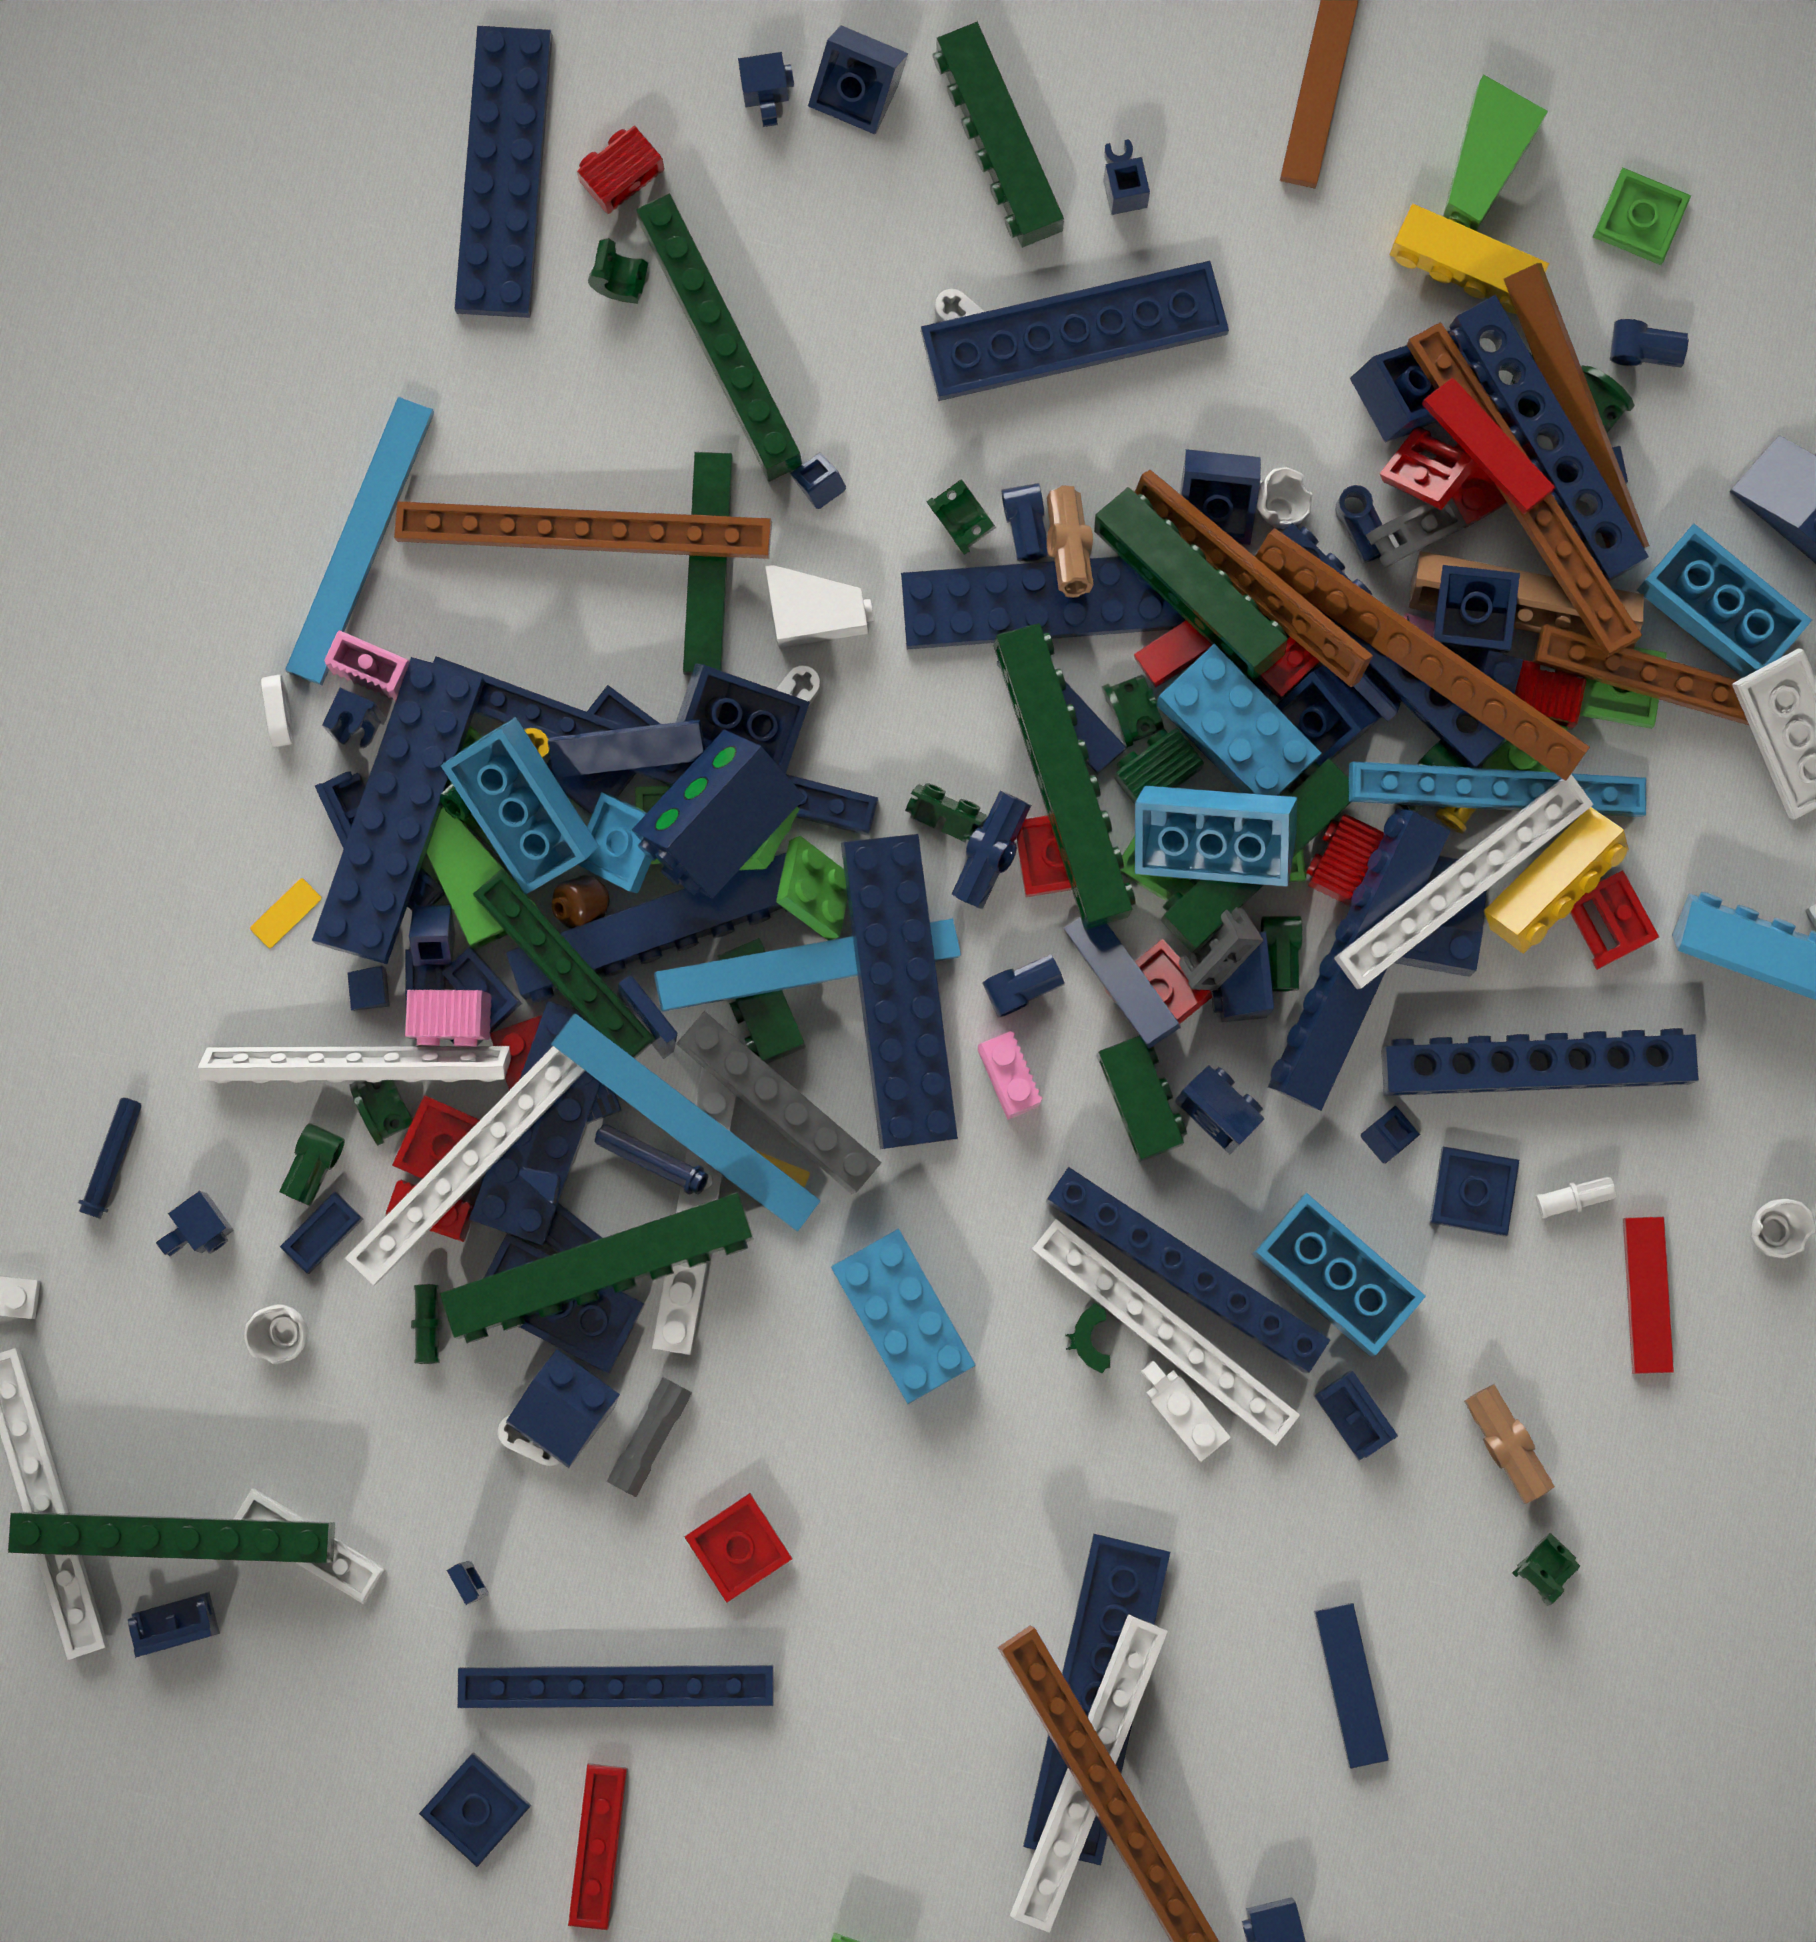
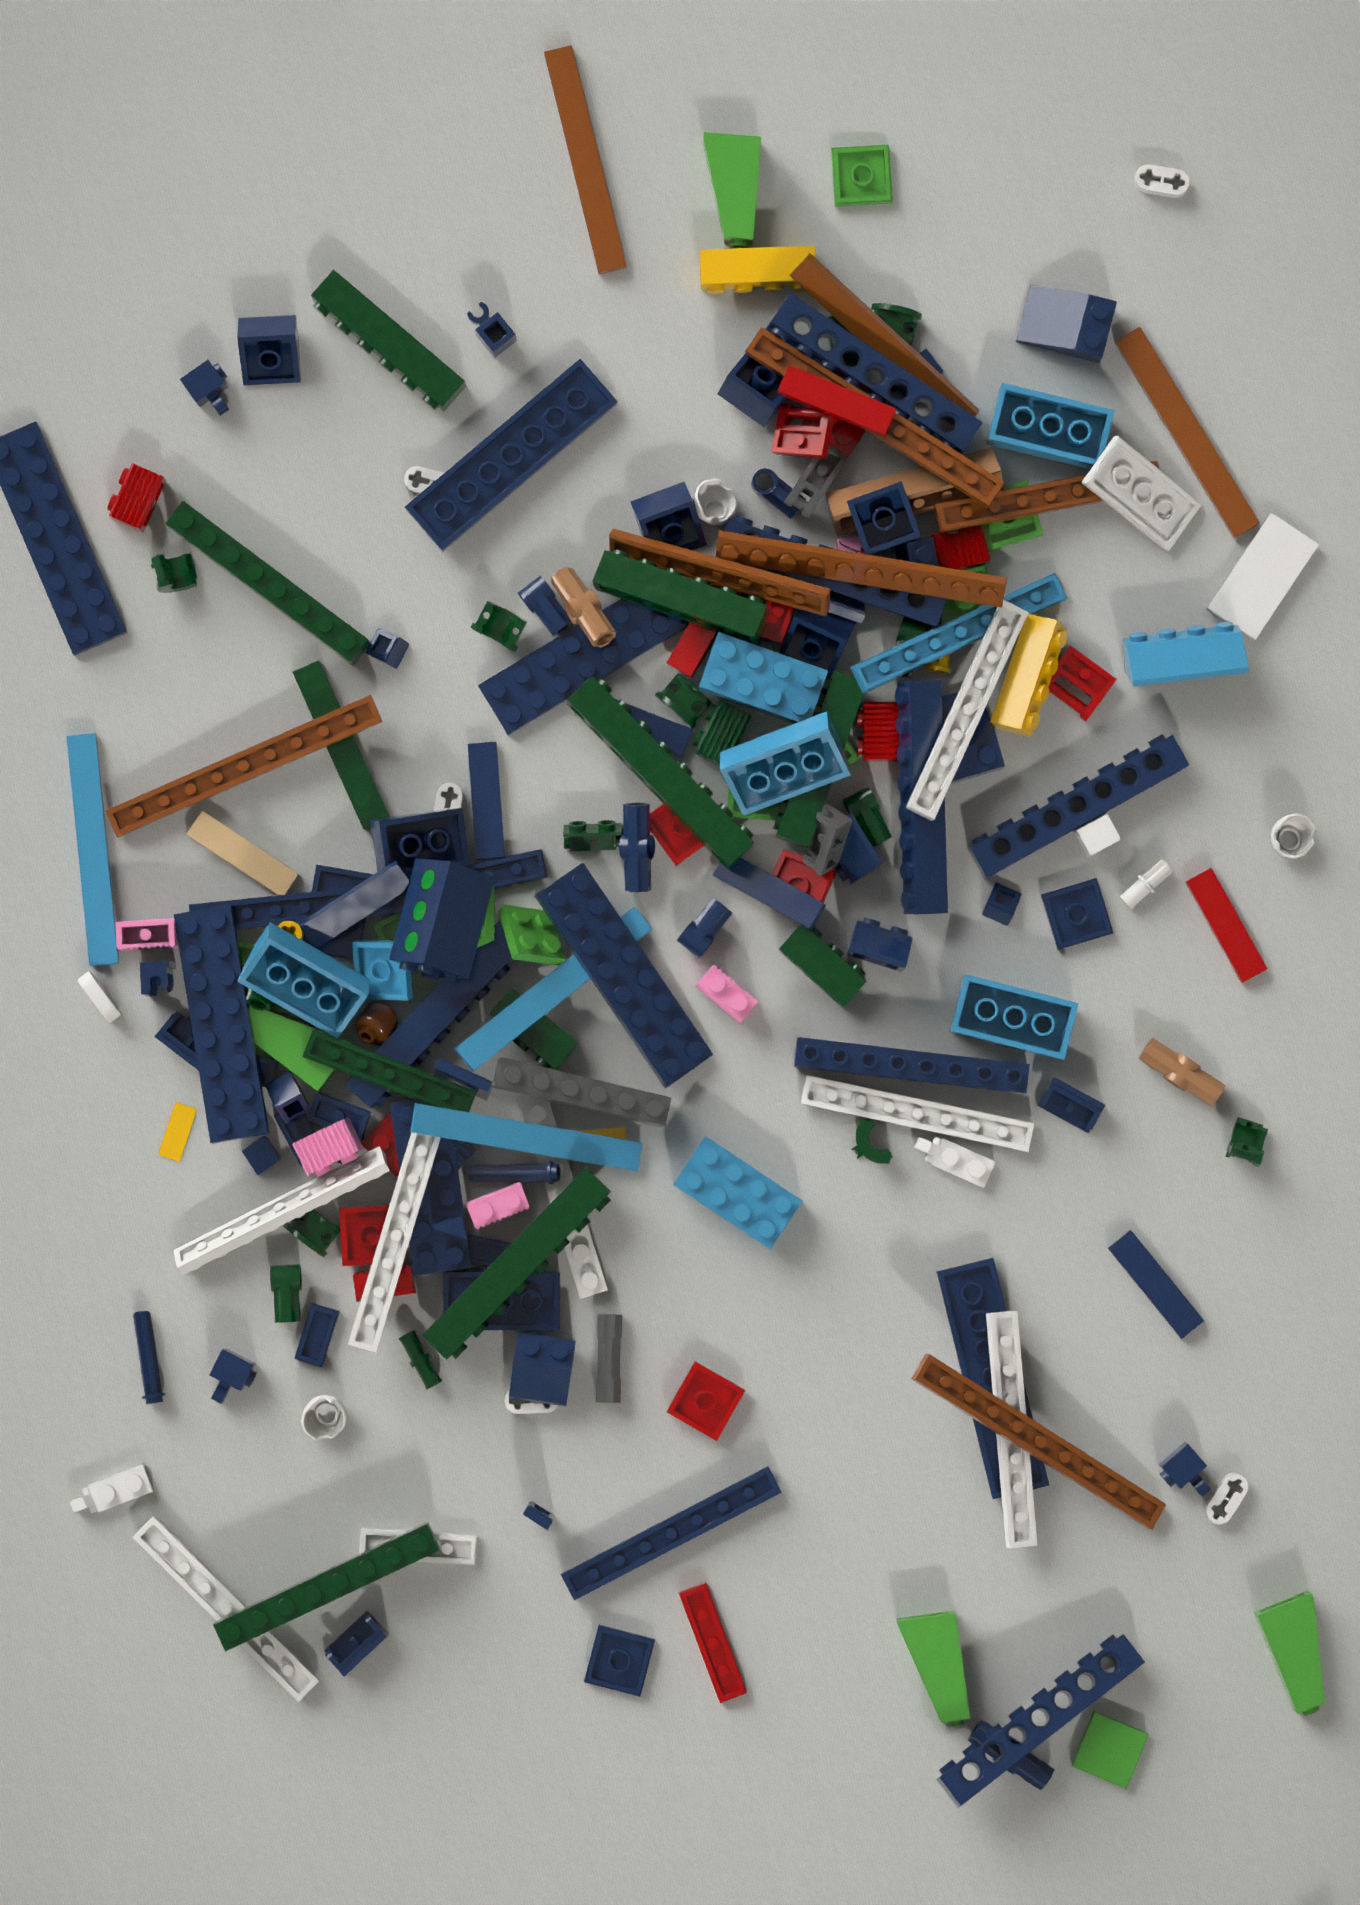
camera: 30 degrees left, 5 degrees up
(528, 631) = (242, 854): none -> tan tile
(612, 1187) = (498, 1205): none -> bright pink brick
(815, 608) = (431, 740): white slope -> none
(842, 710) = (486, 800): none -> dark blue tile
(1545, 1109) = (1097, 835): none -> white panel
(1637, 344) = (903, 269): dark blue piece -> none

